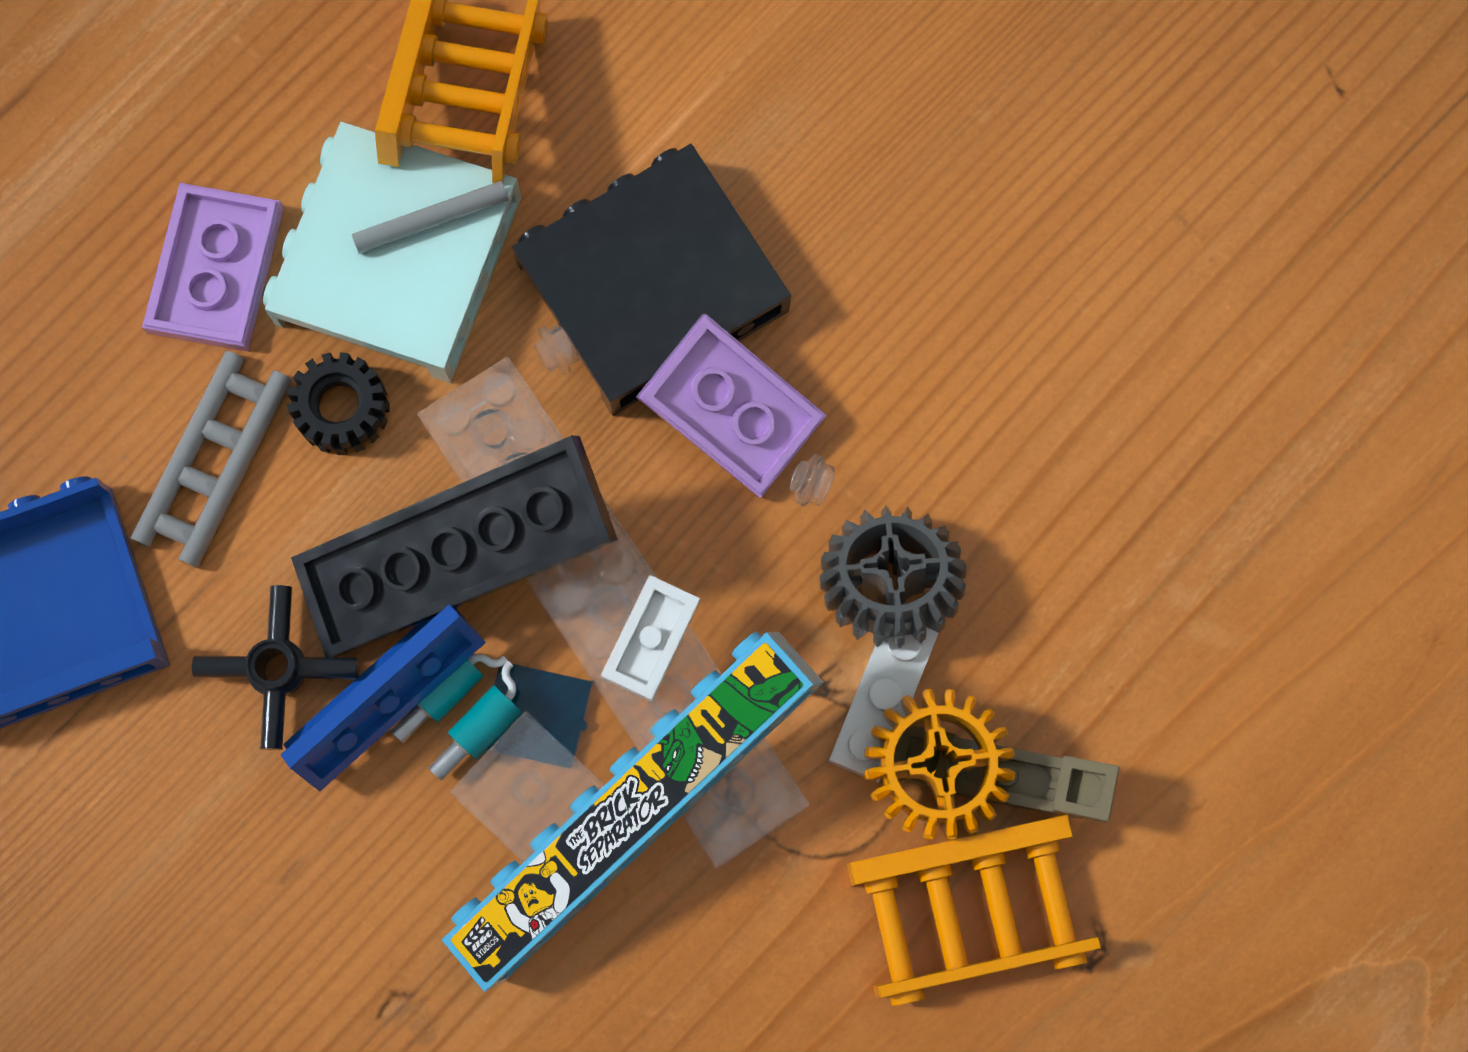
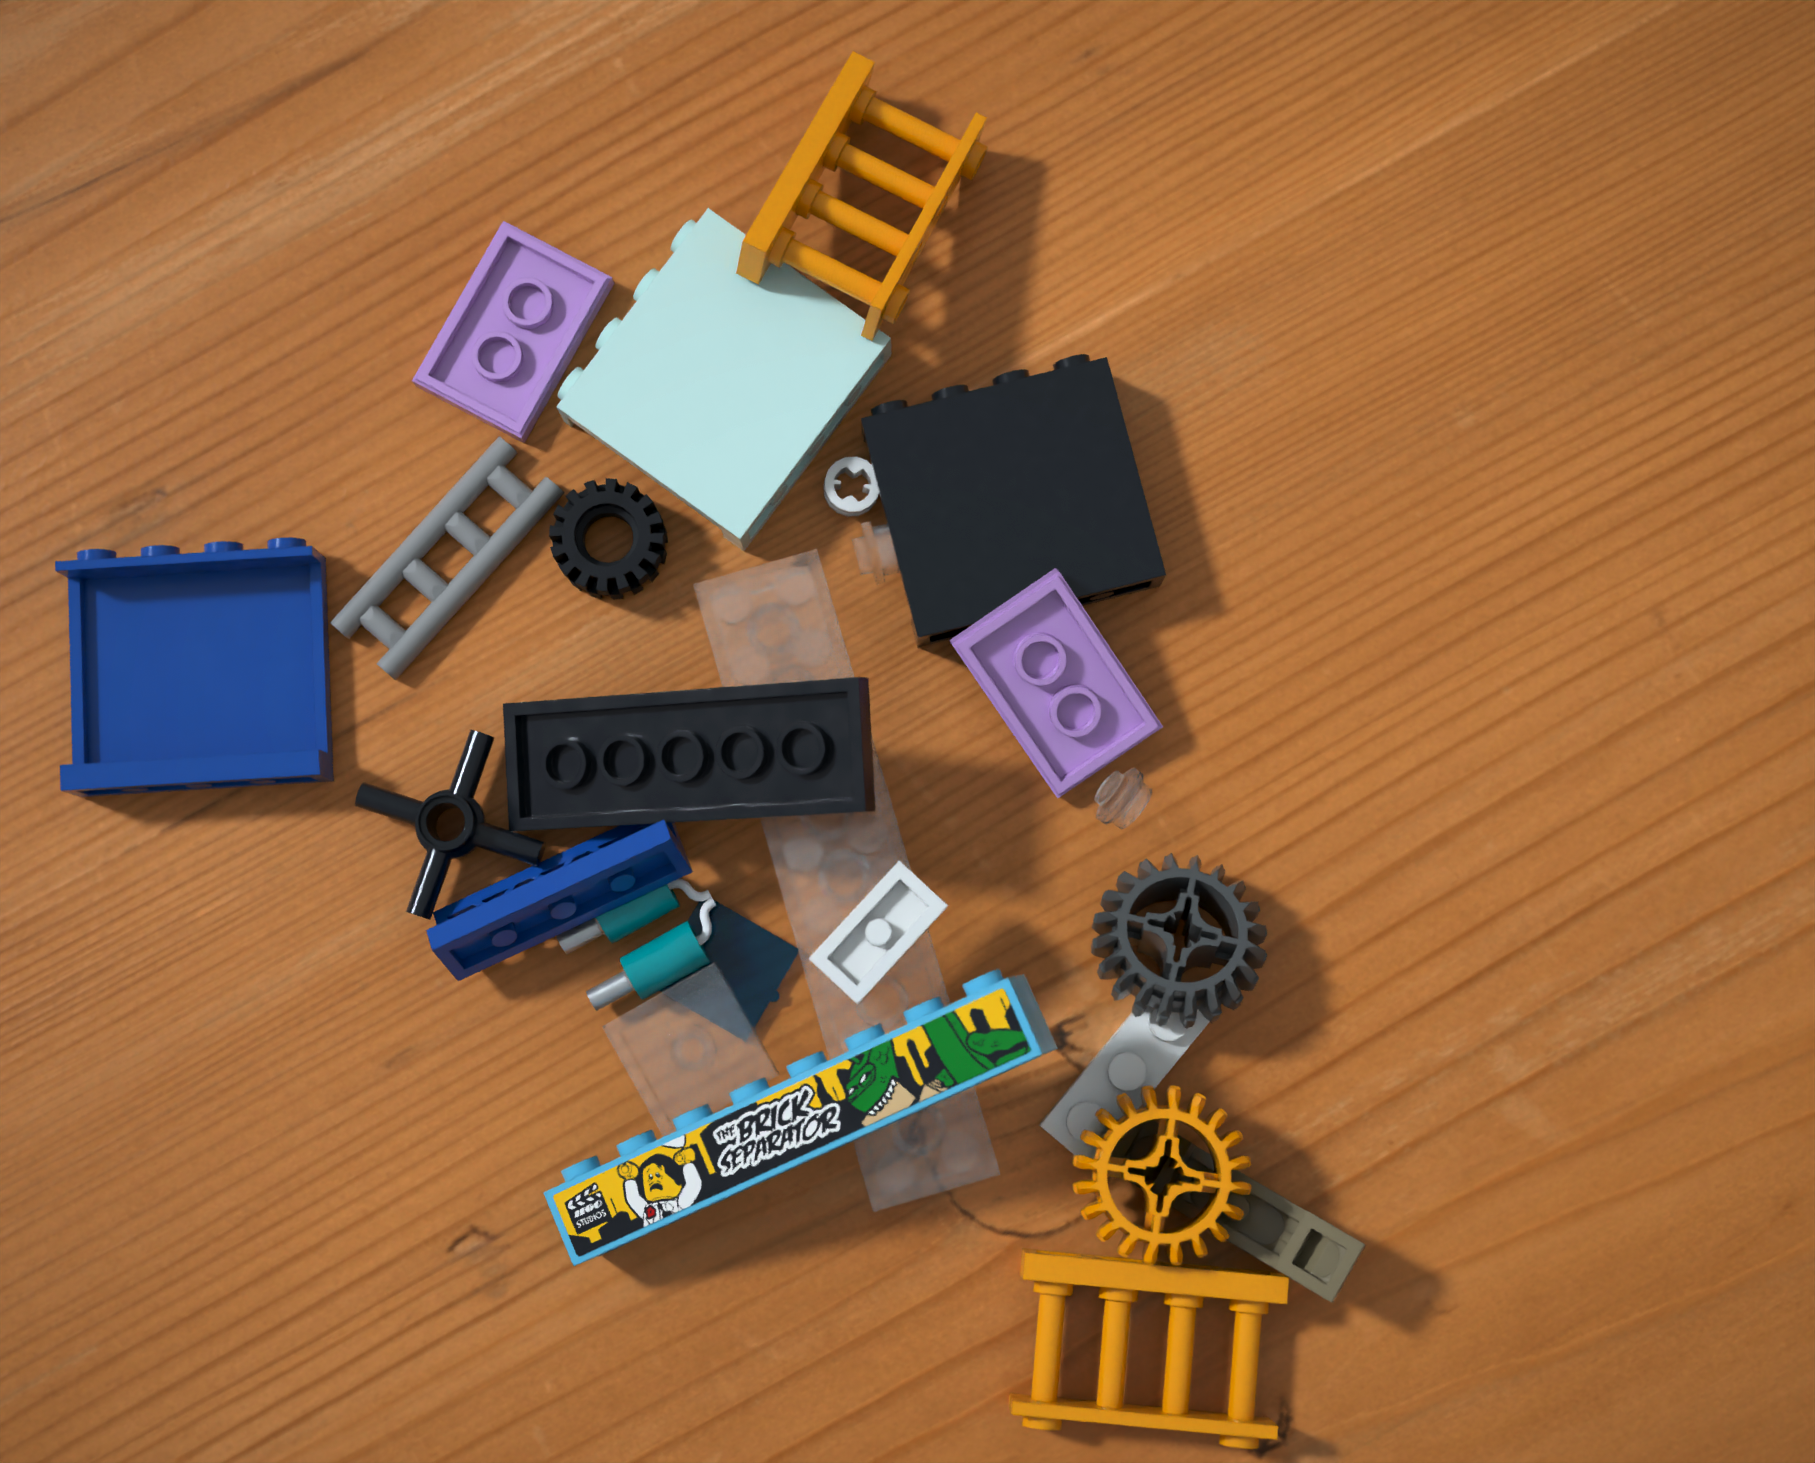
camera: 20 degrees right, 5 degrees up
(430, 217) = (777, 356): light grey bar -> none
(518, 291) = (849, 505): none -> white bush

